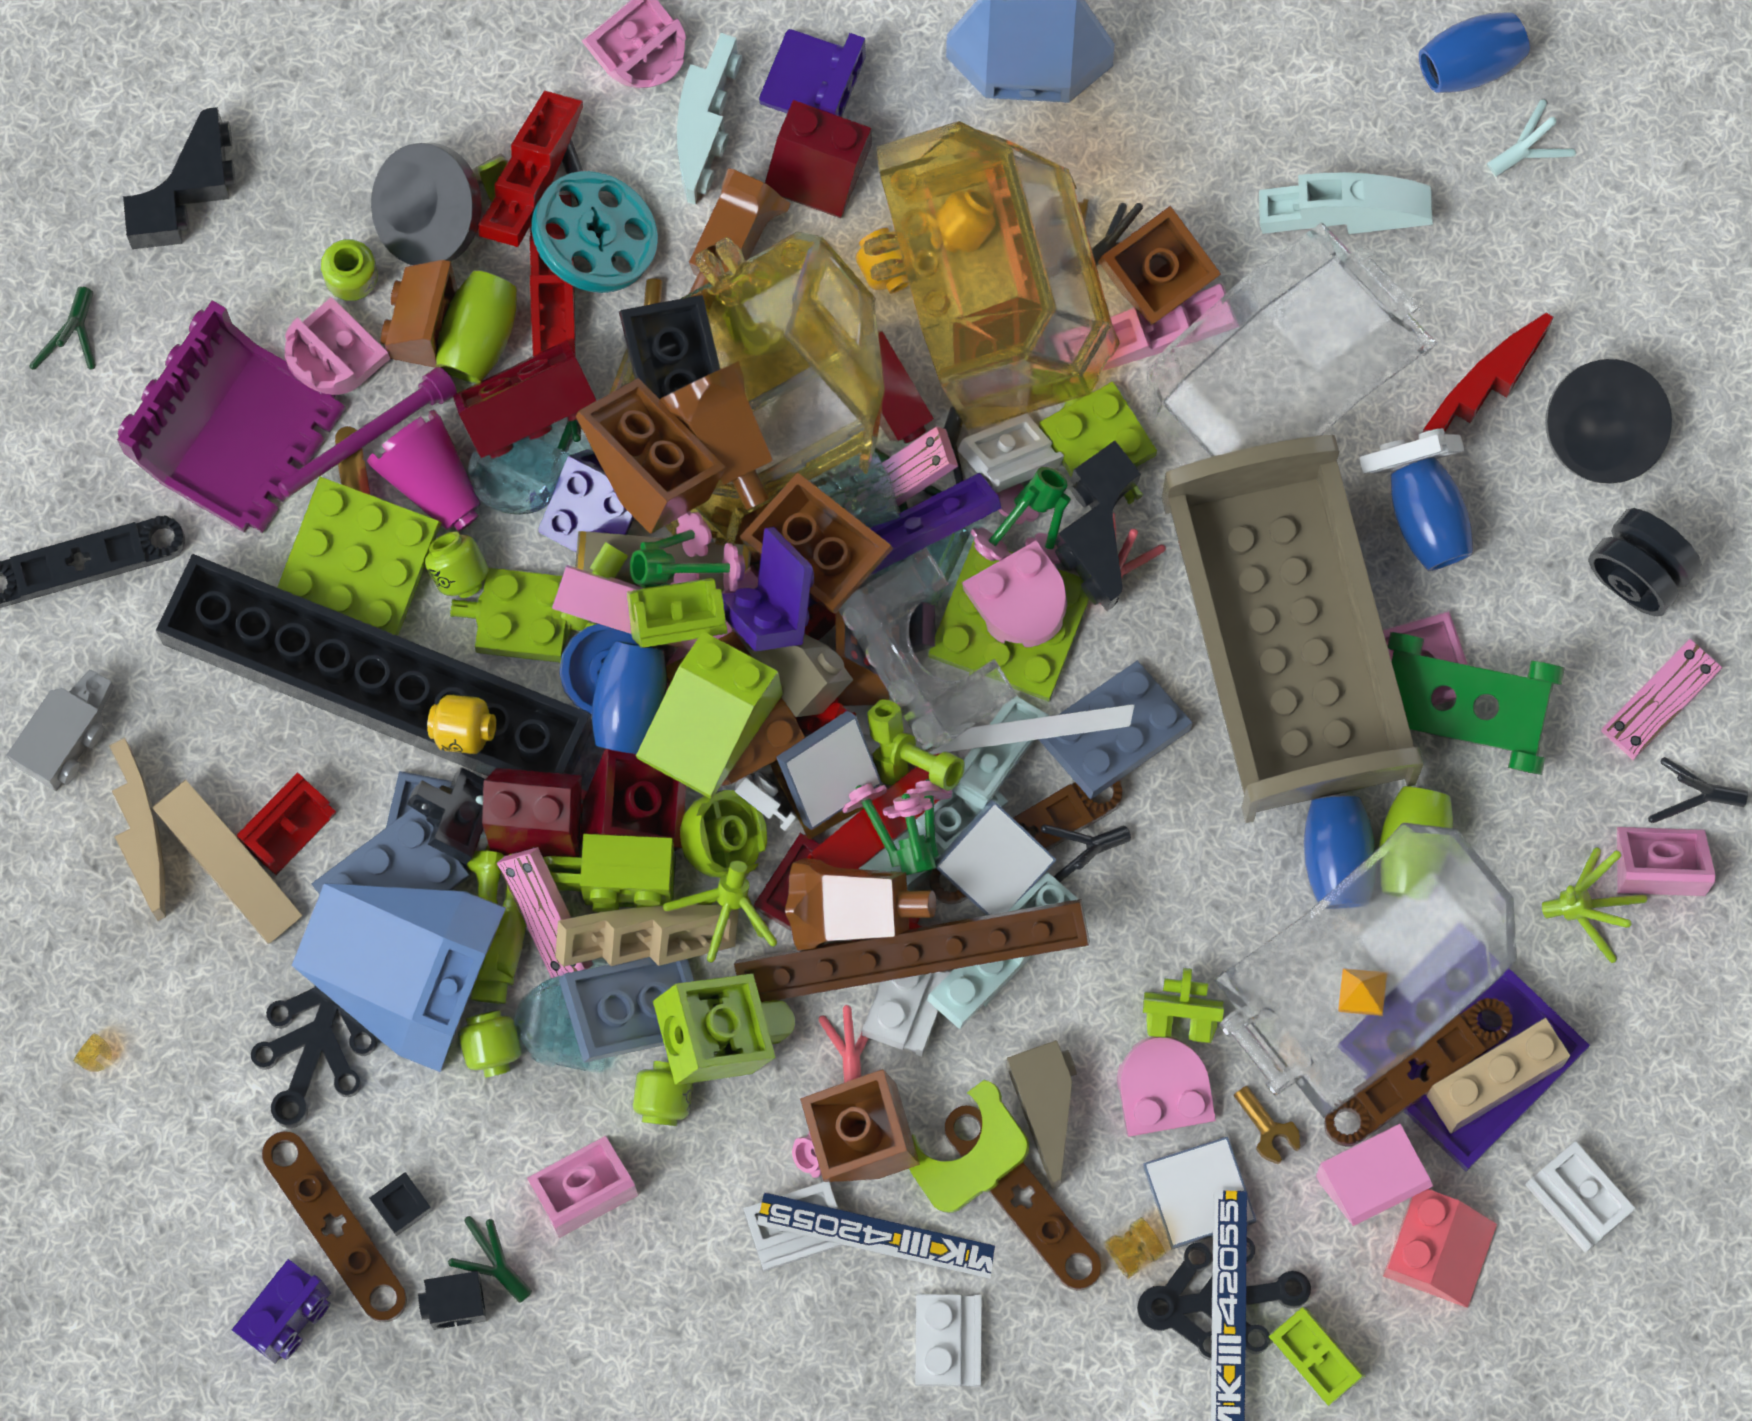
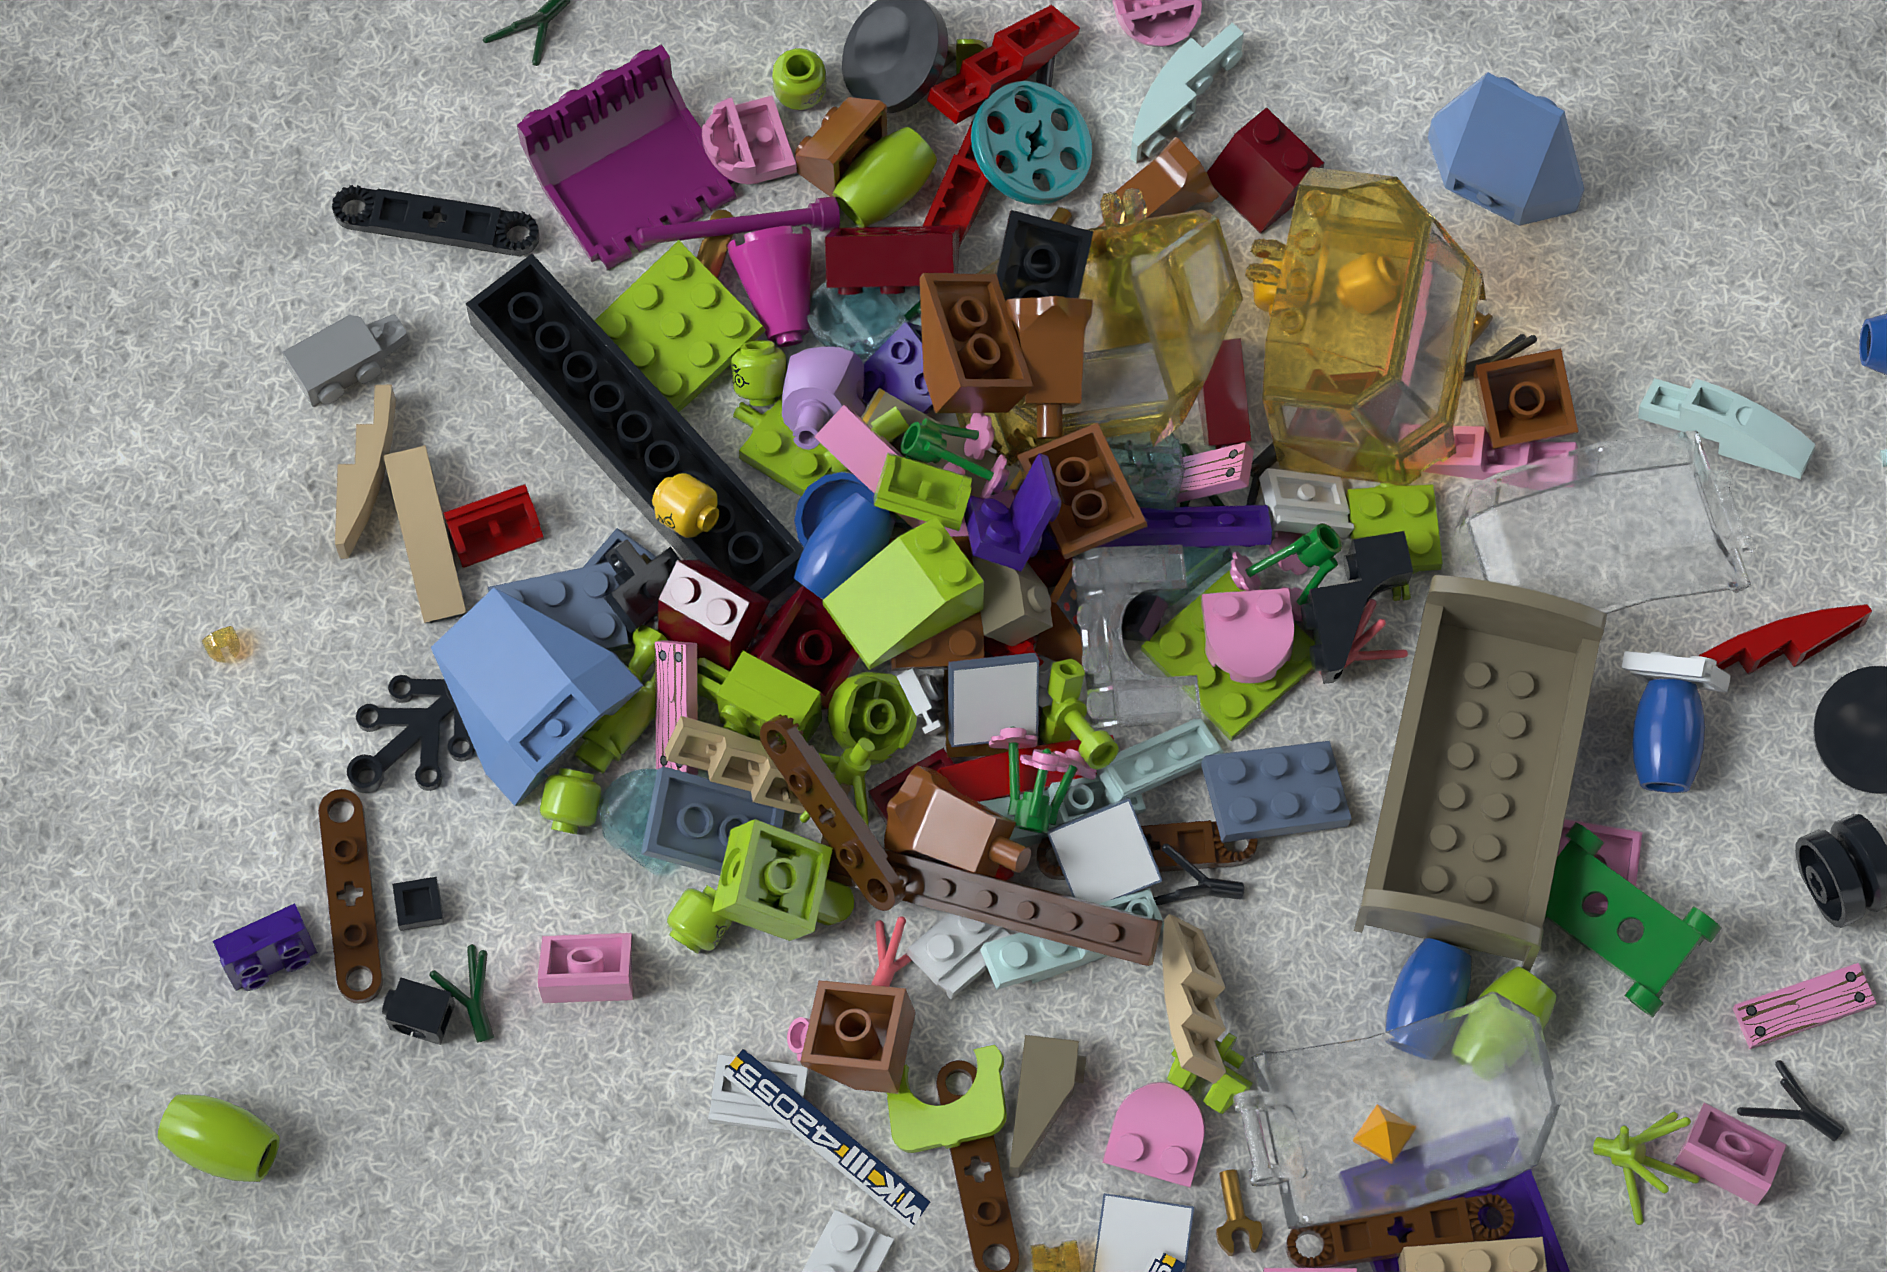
camera: 25 degrees right, 5 degrees down
(526, 559) = (817, 387): none -> lavender piece
(718, 931) = (818, 793): none -> reddish brown piece
(813, 73) = (1301, 96): dark purple bracket -> none
(1039, 728) = (1203, 753): white sticker -> none
(1131, 947) = (1189, 994): none -> tan slope

